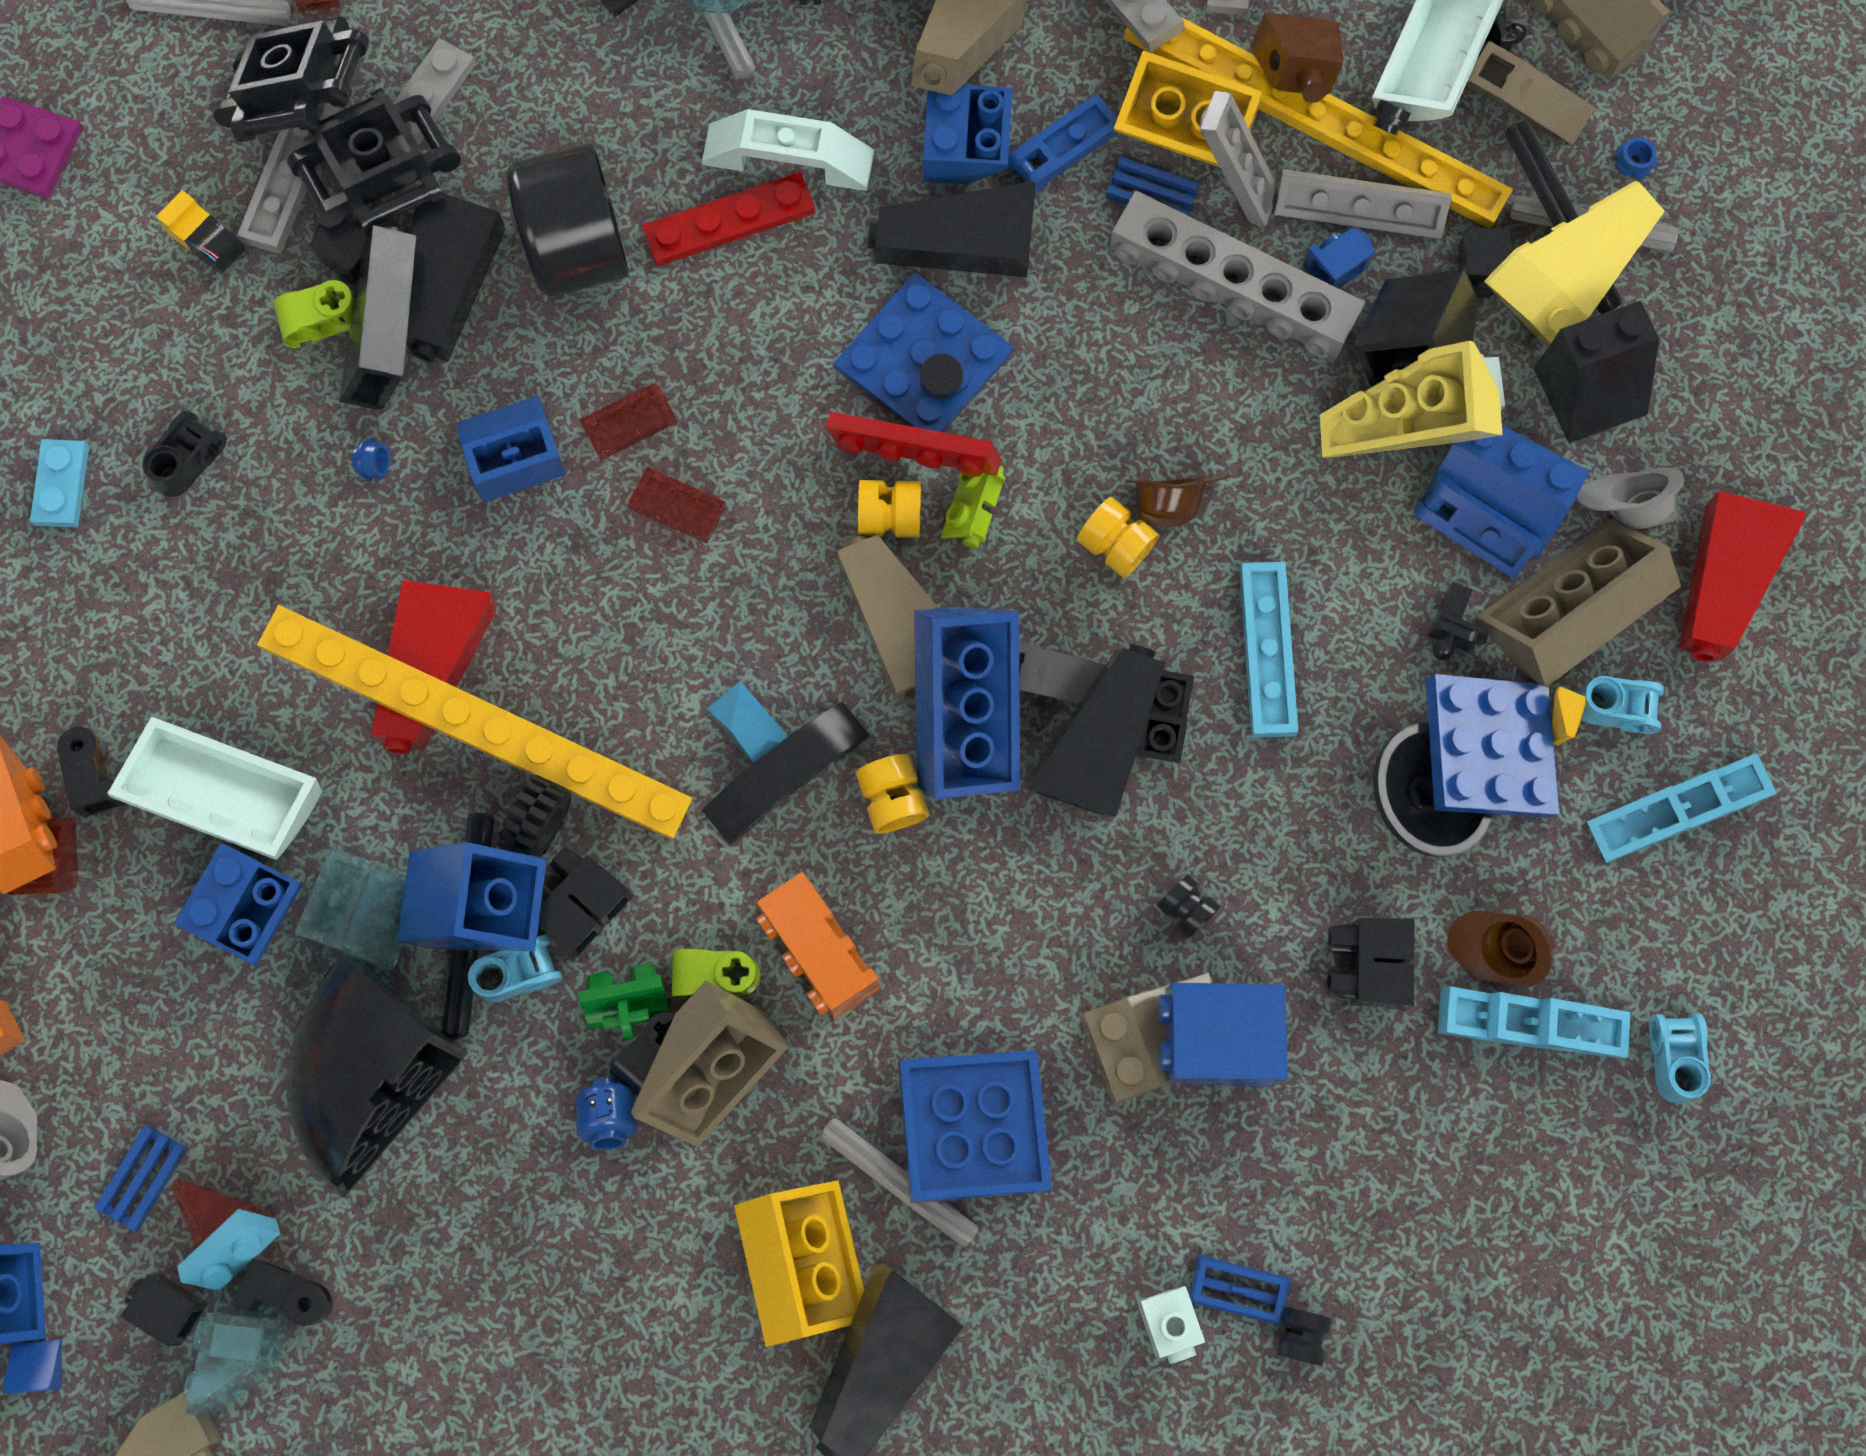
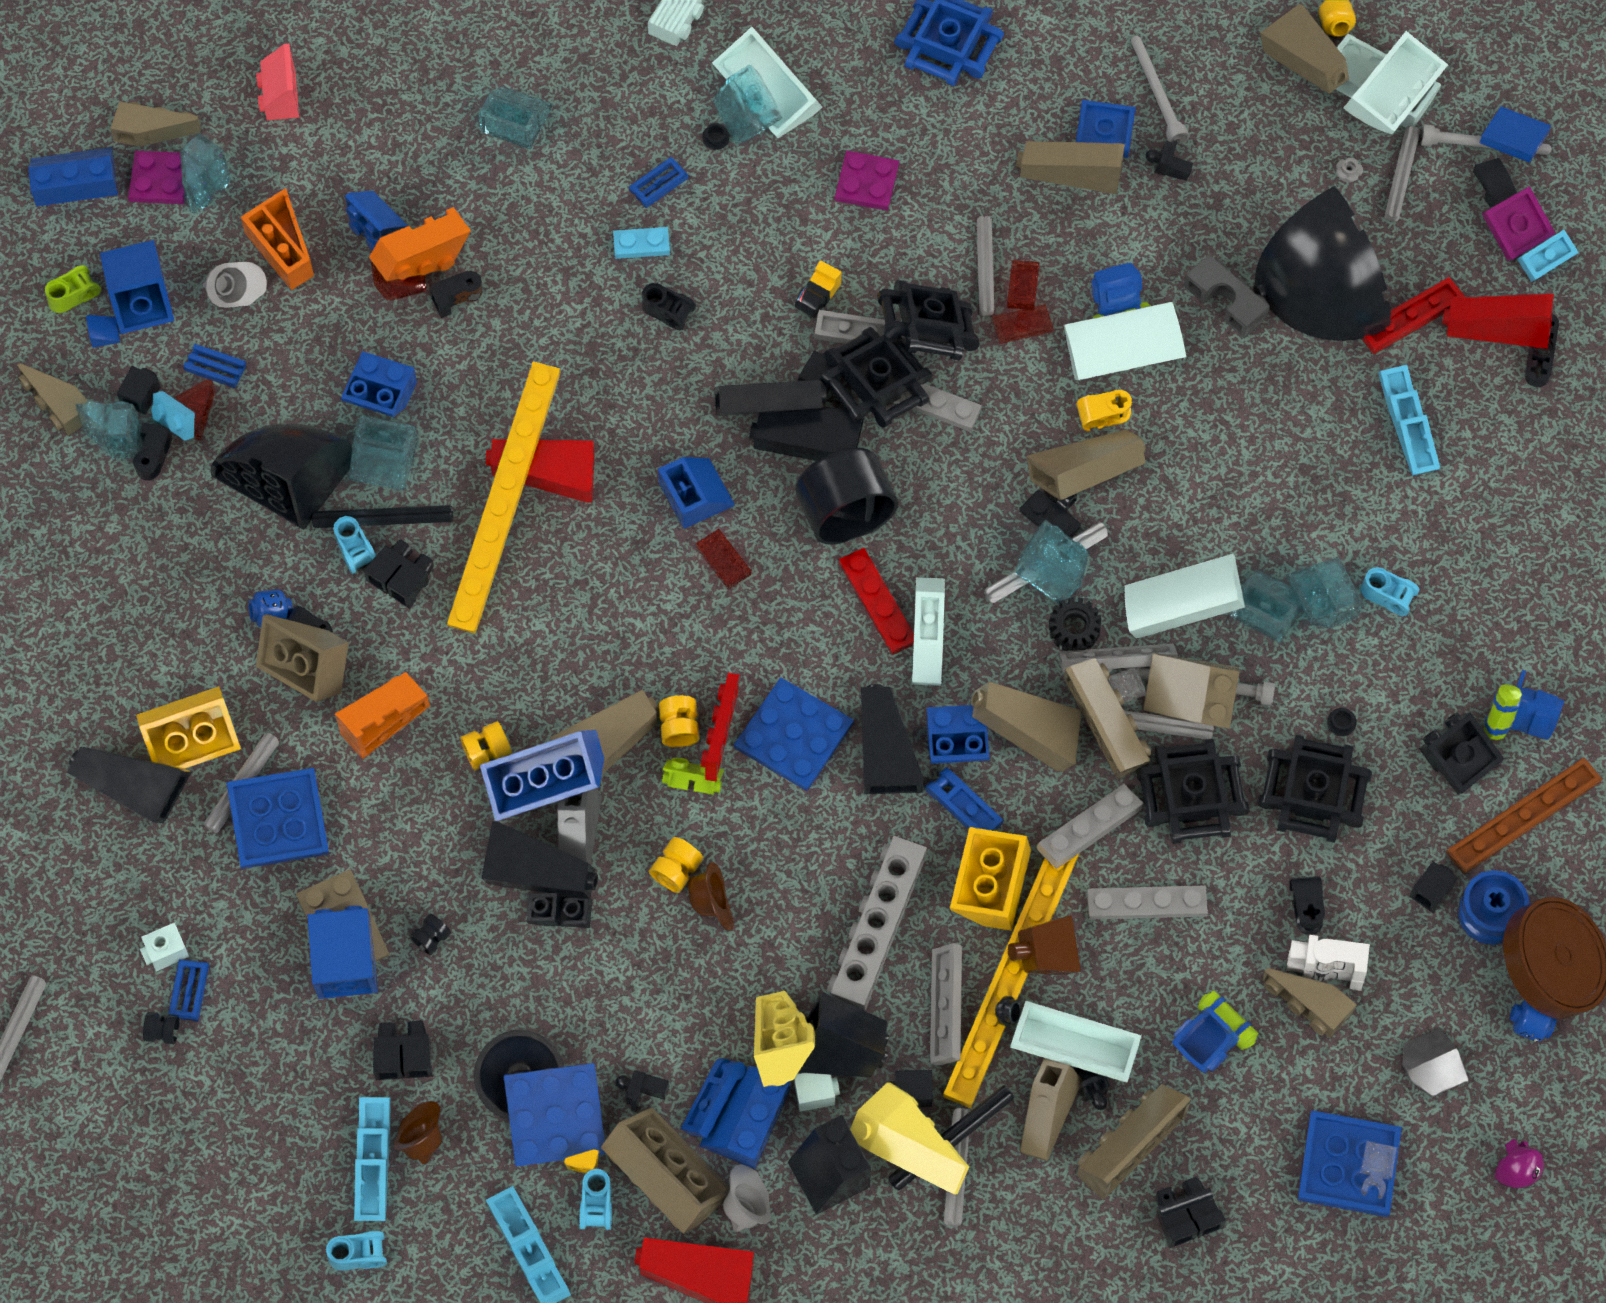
camera: 85 degrees right, 10 degrees down
(216, 788) = (449, 361): light aqua slope -> none
(314, 313) = (771, 362): lime piece -> none
(365, 458) = (677, 410): blue plate -> none
(471, 898) = (389, 509): blue slope -> none
(534, 818) = (446, 539): black tyre -> none
(623, 1003) = (336, 608): green hips -> none
(677, 505) = (668, 596): clear red plate -> none
(695, 966) = (361, 656): lime piece -> none
(746, 722) = (523, 660): dark azure slope -> none
(784, 771) = (499, 684): black slope -> none
(941, 376) = (774, 740): black tile -> none
(1153, 175) = (944, 844): blue tile -> none
(1239, 158) = (946, 900): light grey plate -> none
(1268, 649) = (611, 970): medium azure plate -> none
(1340, 257) = (901, 992): blue brick -> none
(1639, 148) = (1013, 1202): blue plate -> none

